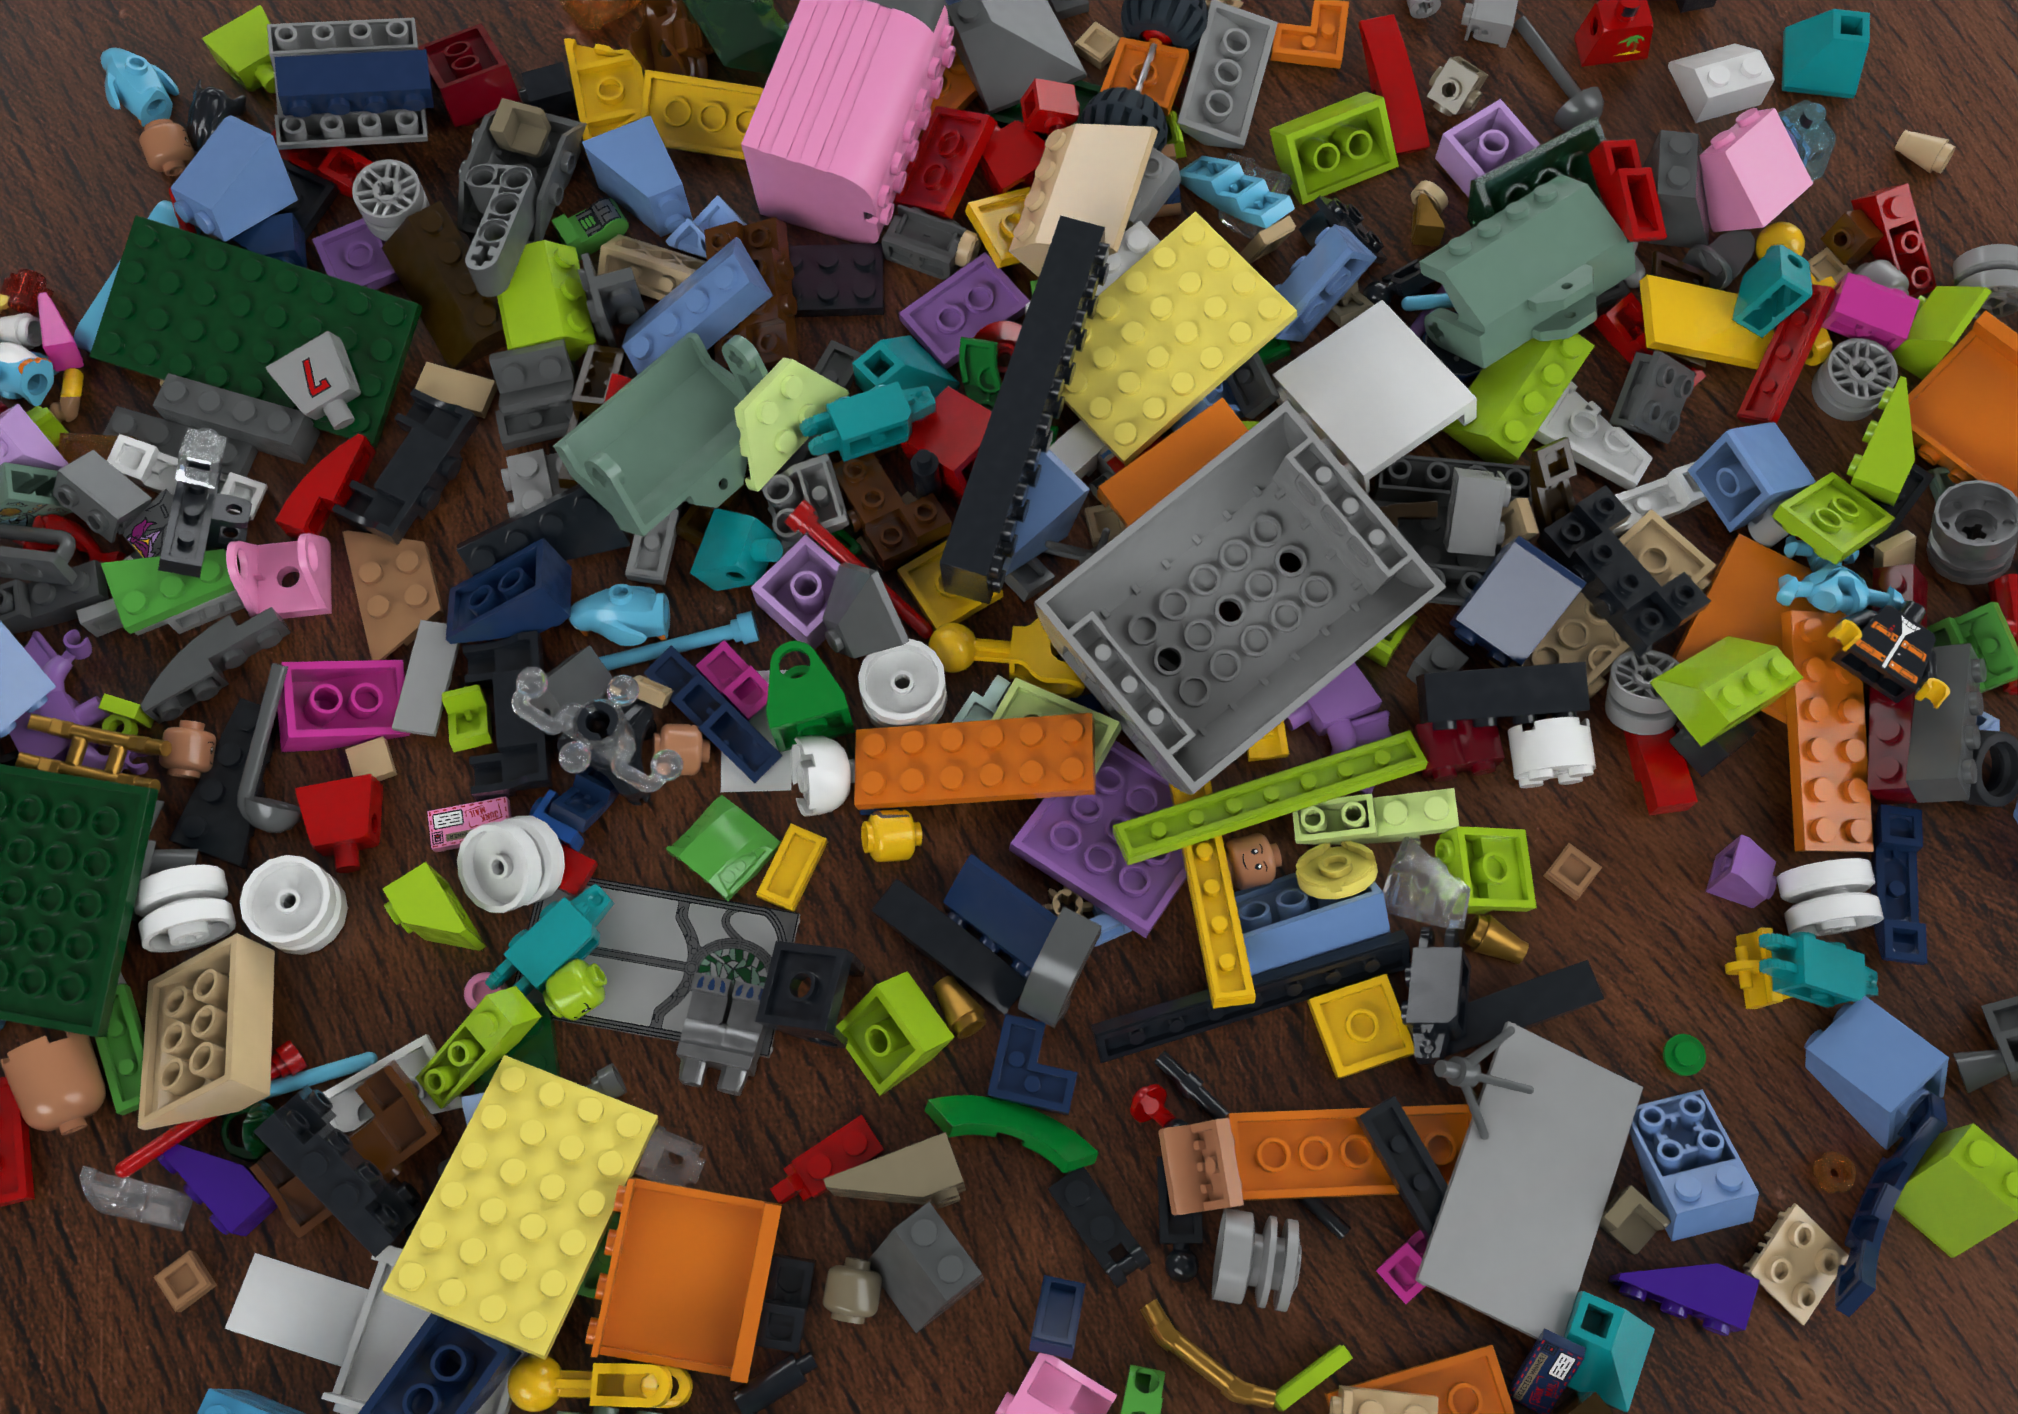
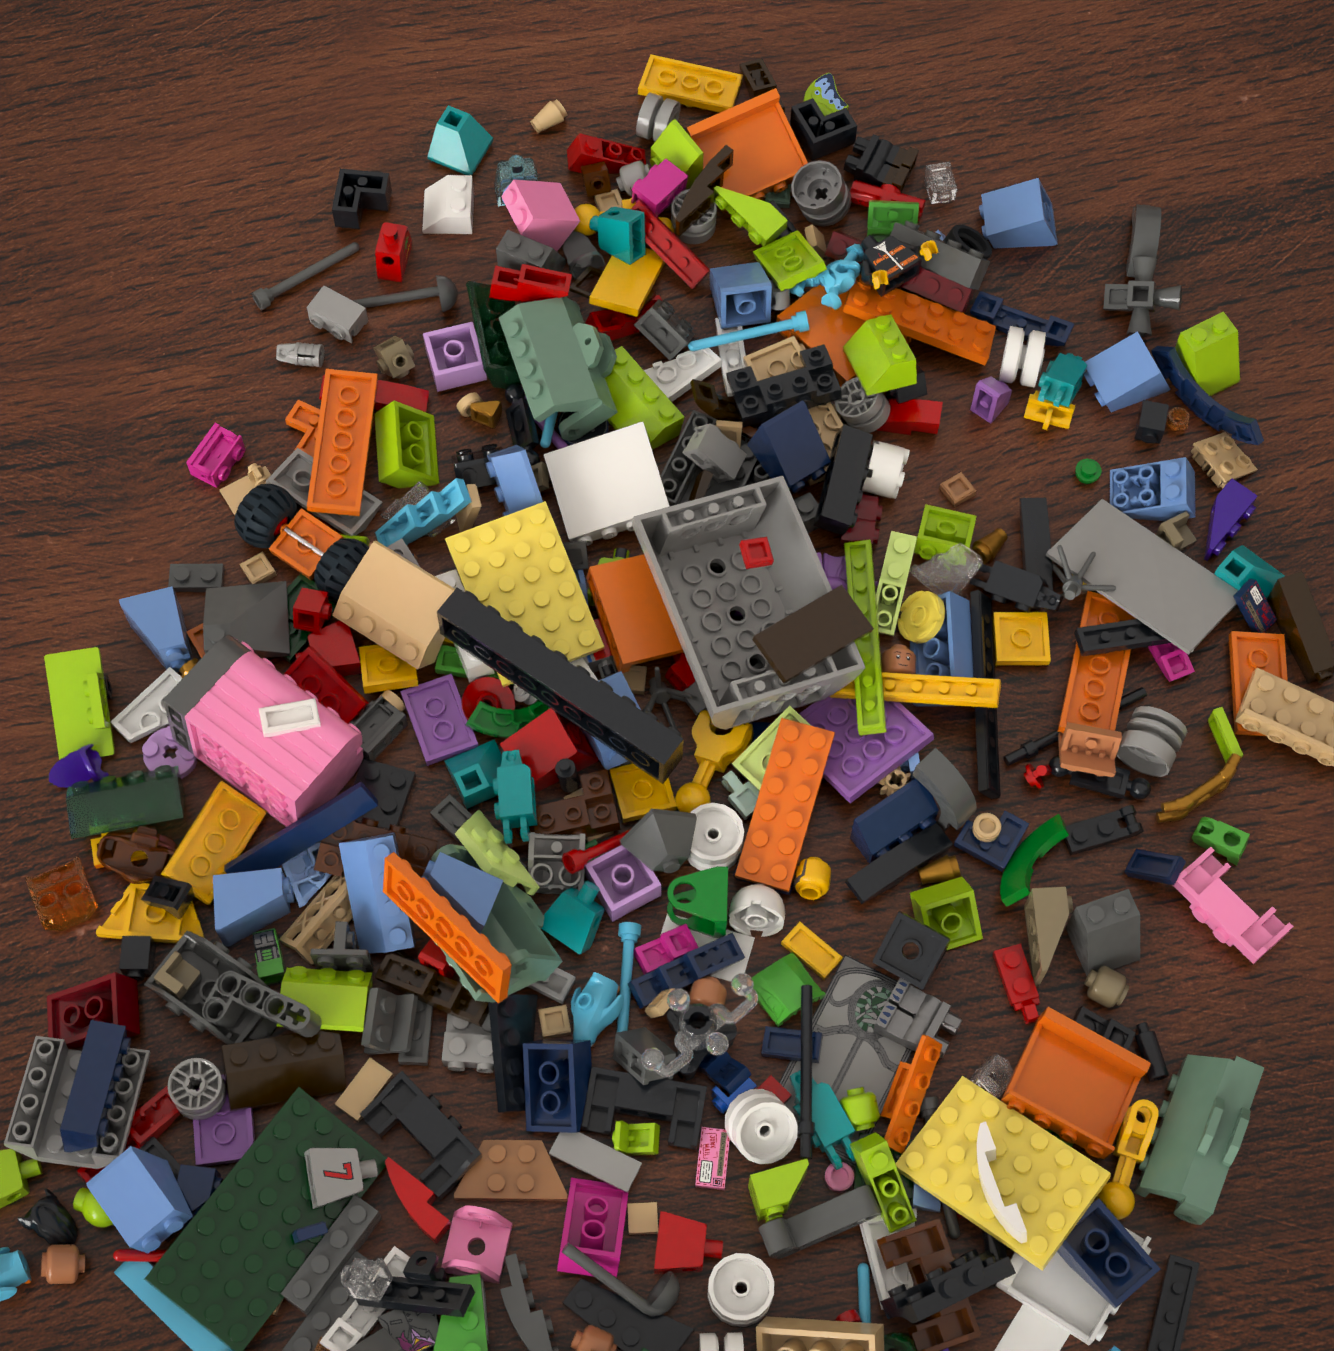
camera: 75 degrees left, 5 degrees down
(240, 375) = (309, 1232): none -> dark blue tile
(399, 974) = (791, 1235): none -> dark grey beam
(519, 919) = (806, 1127): none -> black bar
(535, 1163) = (1009, 1215): none -> white slope
(600, 574) = (554, 1021): none -> tan tile
(606, 1048) = (908, 1093): none -> orange bracket
(620, 92) = (169, 895): none -> black slope
(635, 367) = (446, 927): none -> orange plate
(649, 879) = (786, 1044): none -> dark blue tile
(690, 388) = (465, 887): none -> medium blue slope
(740, 197) = (306, 831): none -> dark blue tile
(849, 97) = (289, 717): none -> white tile
(1039, 1051) = (986, 827): none -> tan tile
(1210, 701) = (812, 634): none -> dark brown tile
(1300, 62) = (342, 442): none -> orange plate
(1303, 584) = (756, 552): none -> red tile
(1738, 562) = (797, 322): none -> medium azure piece
(1809, 1130) = (1151, 422): none -> black brick
(1875, 363) = (701, 194): none -> dark brown slope

